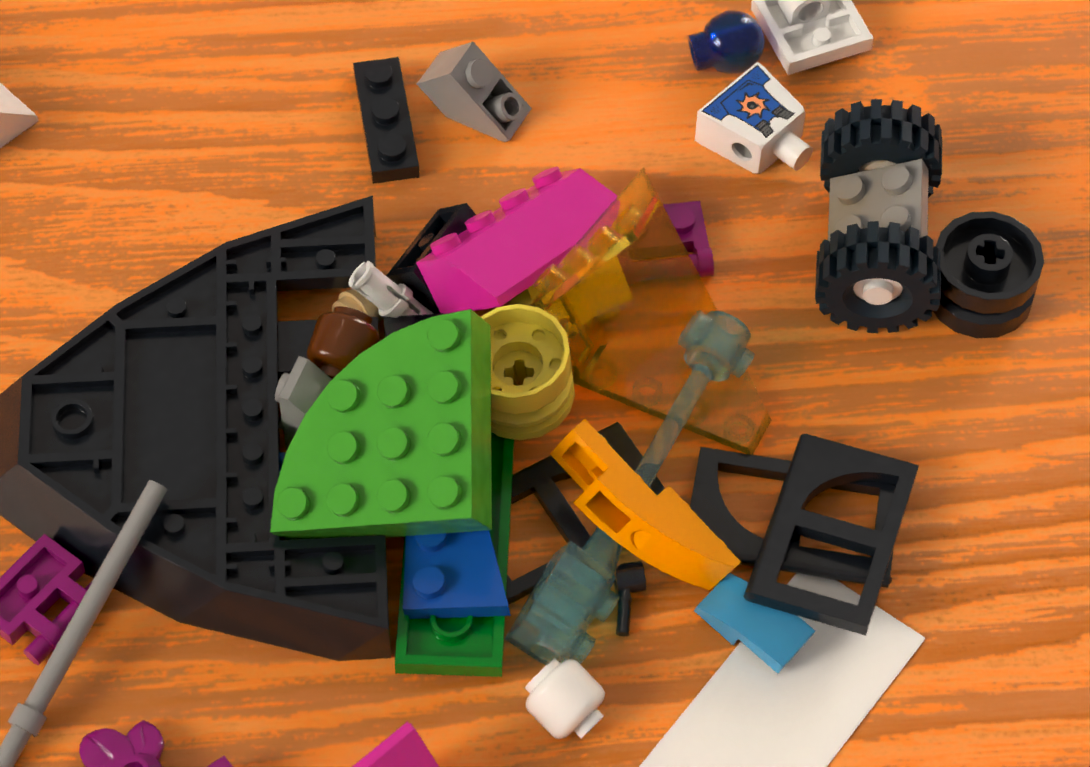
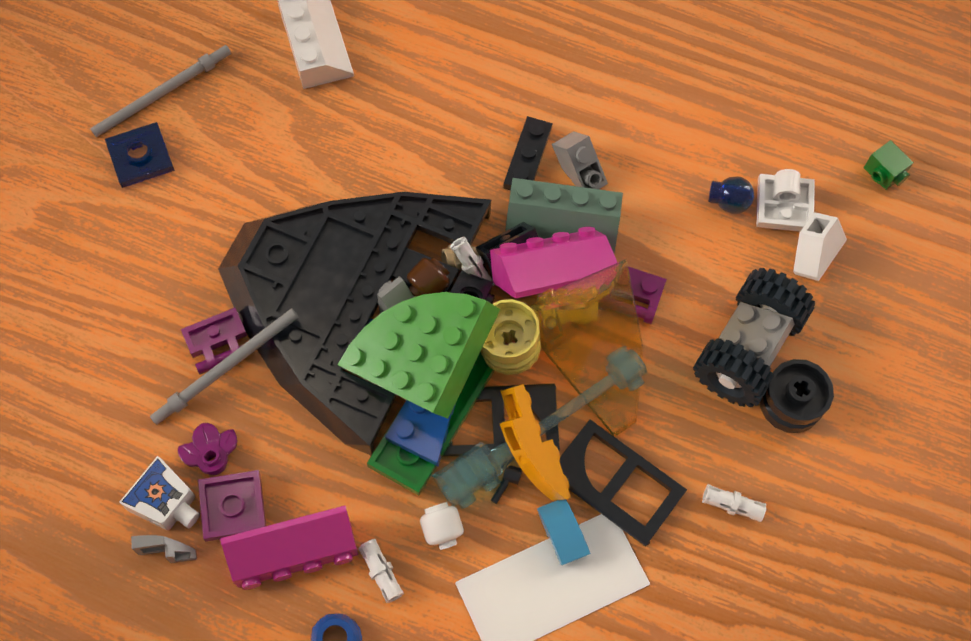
camera: 25 degrees right, 10 degrees up
(484, 163) = (563, 208): none -> sand green slope
(754, 123) = (720, 248): white torso -> none
(813, 469) = (642, 461): black window -> none
(894, 54) = (818, 245): none -> white slope
(981, 464) = (734, 503): none -> white pin

